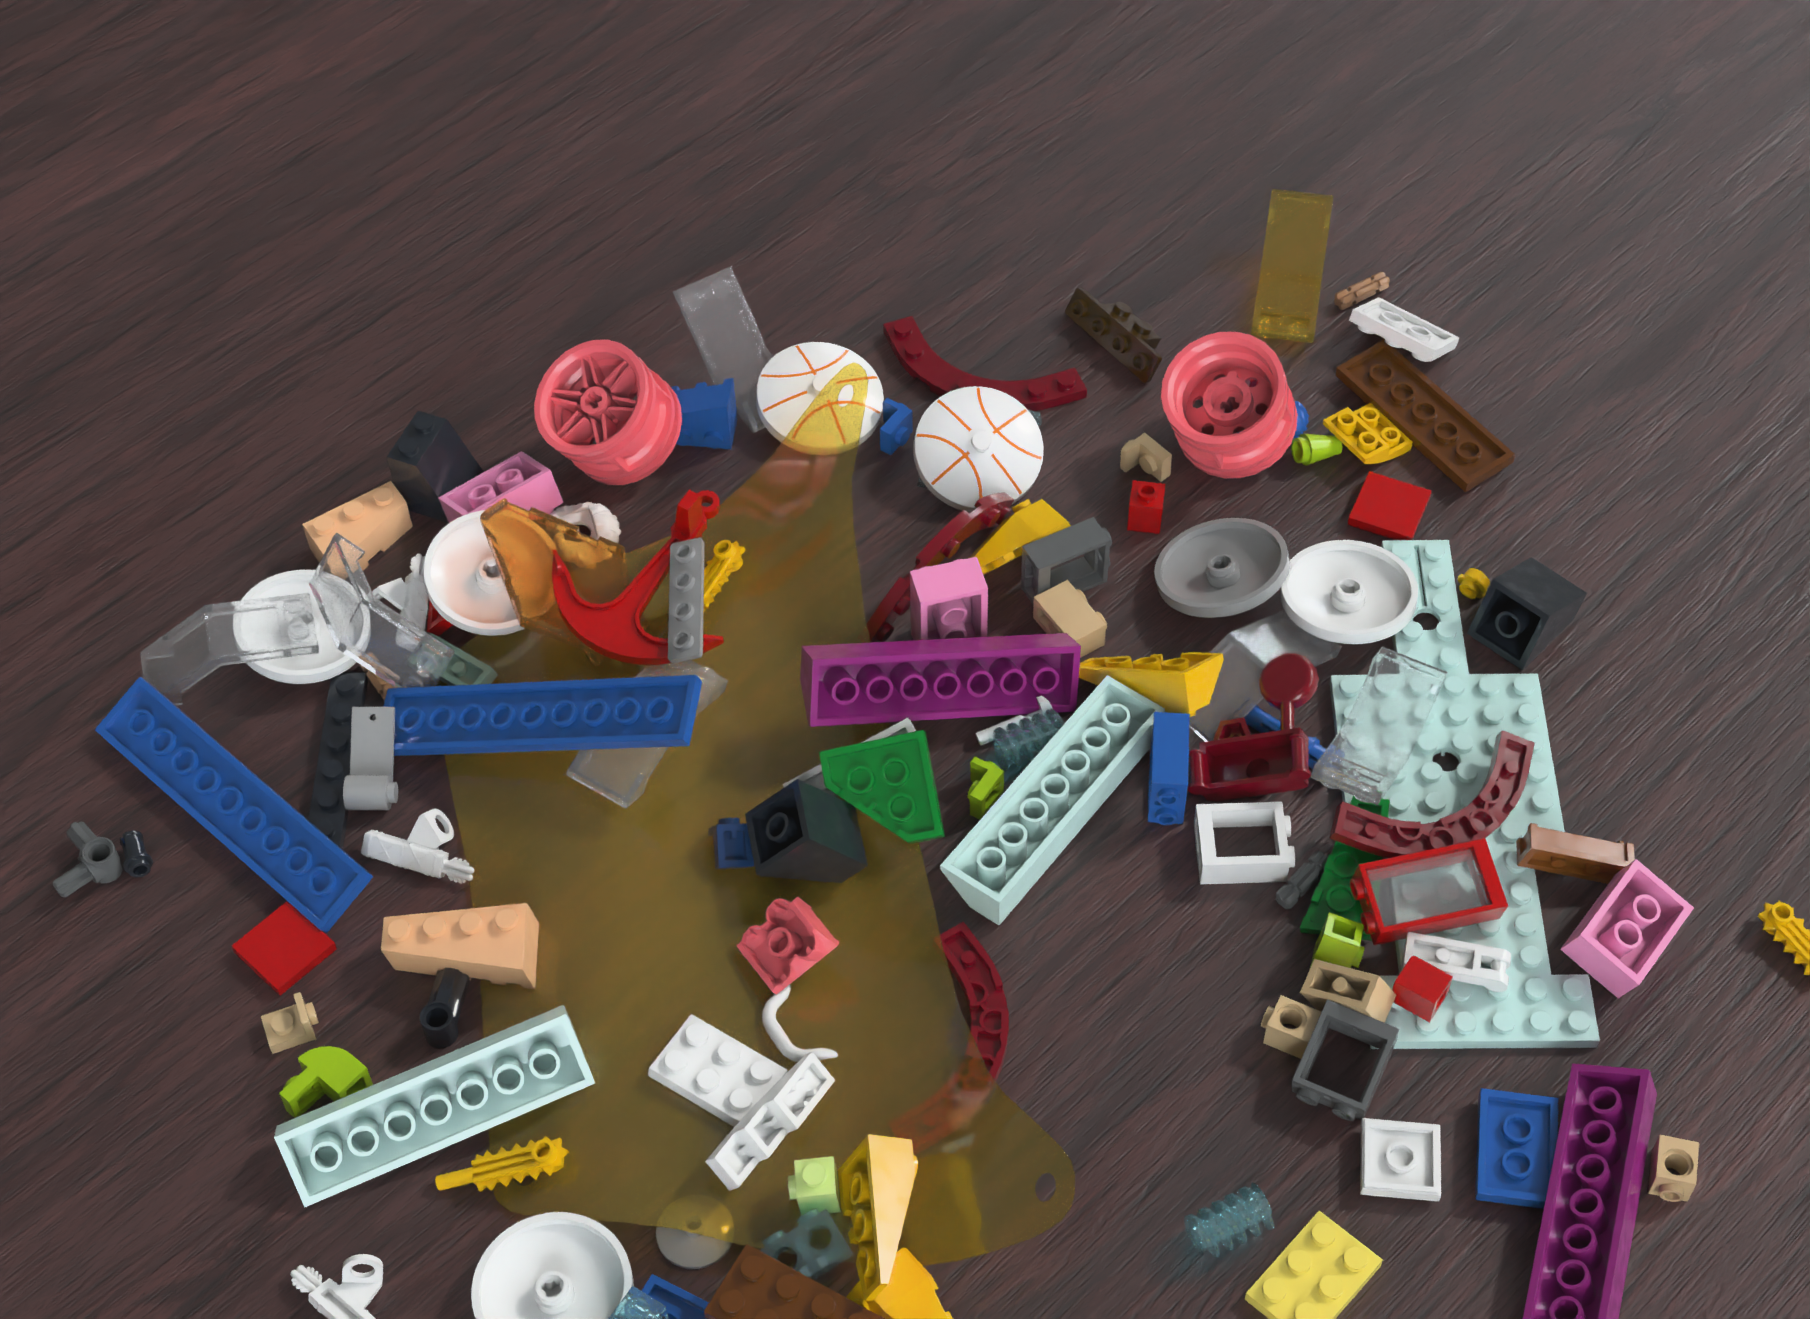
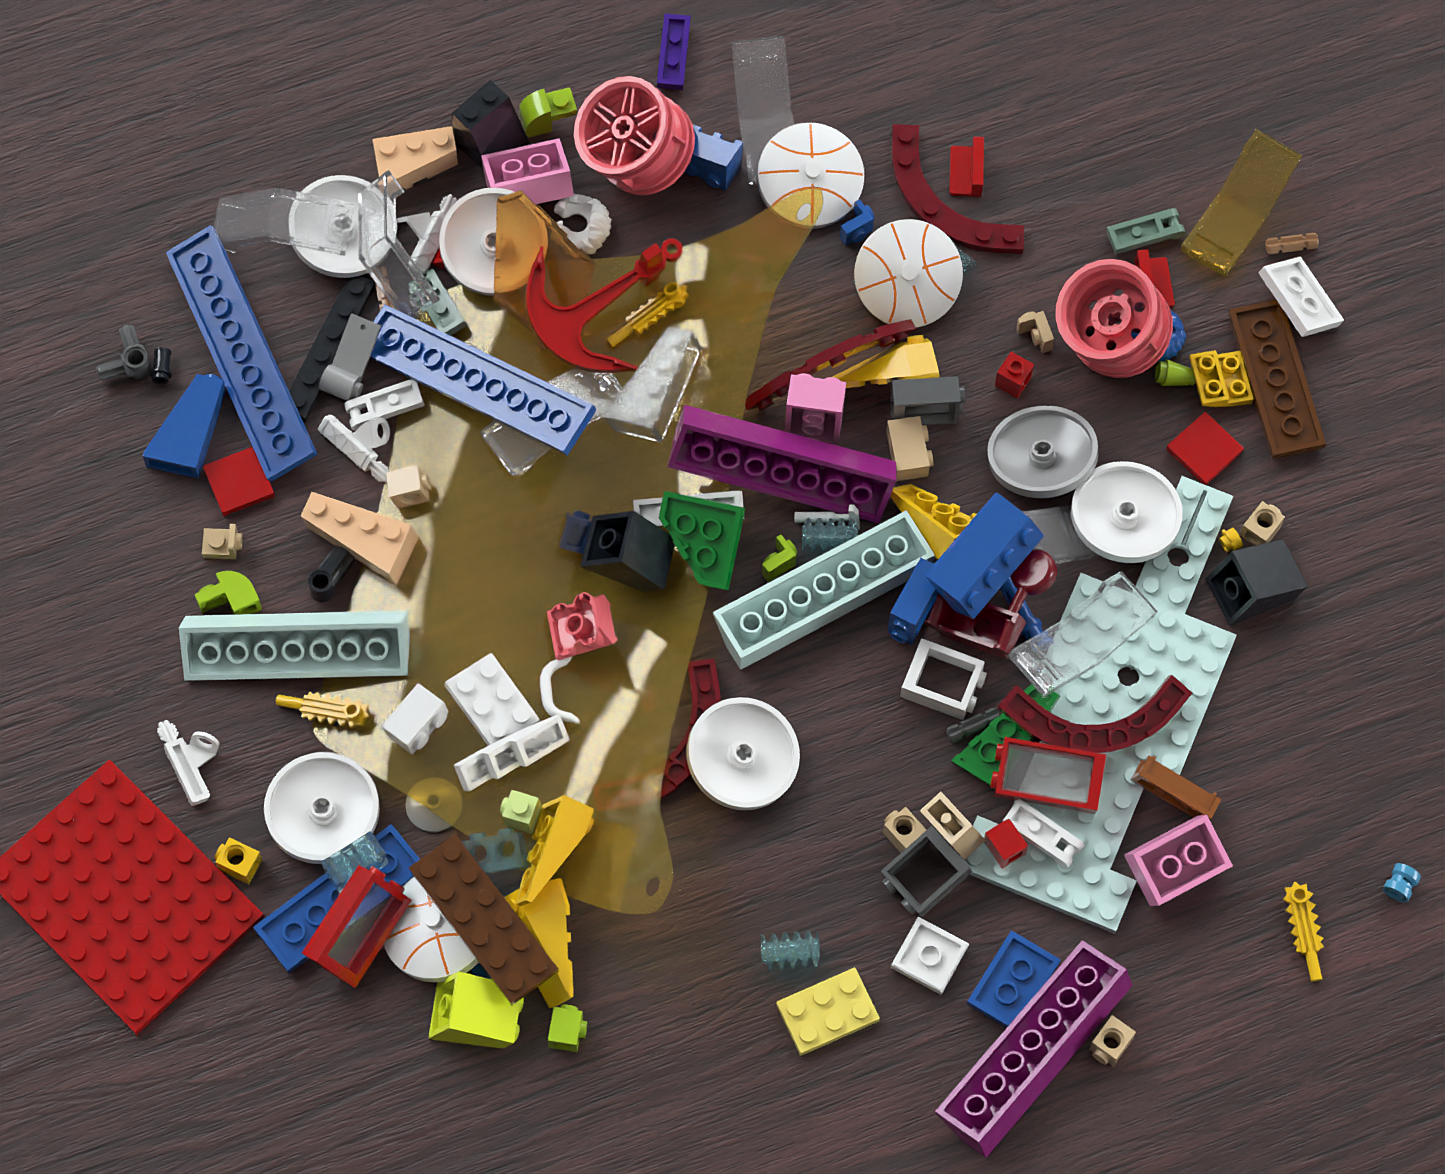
camera: 20 degrees right, 15 degrees up
(196, 913) = (188, 430): none -> blue slope
(433, 792) = (385, 403): none -> white plate
(487, 431) = (542, 108): none -> lime brick
(502, 869) = (408, 486): none -> tan brick
(605, 321) = (673, 51): none -> dark purple plate
(631, 1127) = (415, 719): none -> white brick
(686, 600) = (620, 328): light grey bracket -> none
(752, 659) = (656, 387): none -> clear wedge
(986, 337) = (967, 169): none -> red panel
(1054, 1013) = (743, 753): none -> white dish
(1118, 332) = (1076, 206): dark brown bracket -> none
(1214, 319) = (1145, 231): none -> sand green plate
(1227, 681) = (984, 556): none -> blue slope
(1339, 942) = (966, 787): lime brick -> none
(1498, 552) = (1259, 535): none -> tan brick

